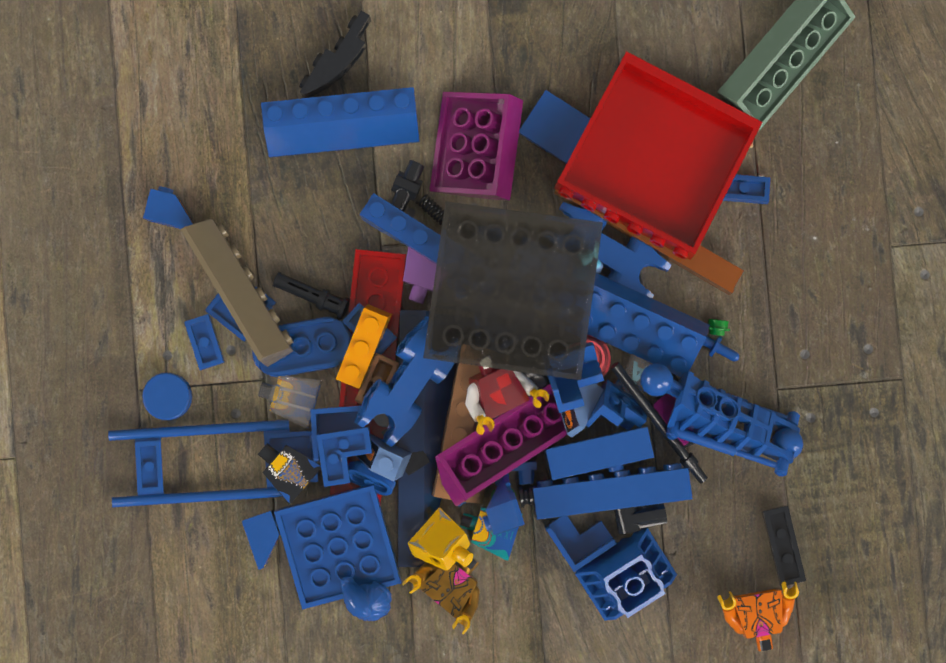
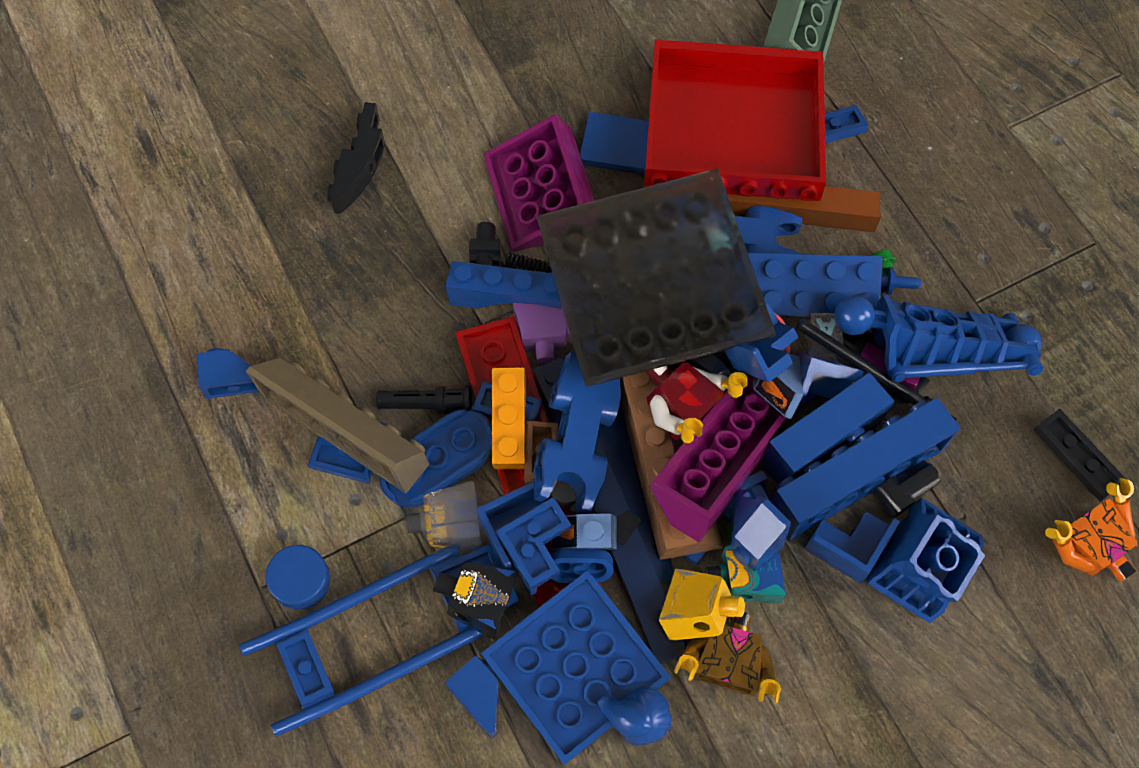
camera: 25 degrees left, 20 degrees down
(204, 342) = (320, 498): blue plate -> none
(340, 122) = (385, 216): blue slope -> none

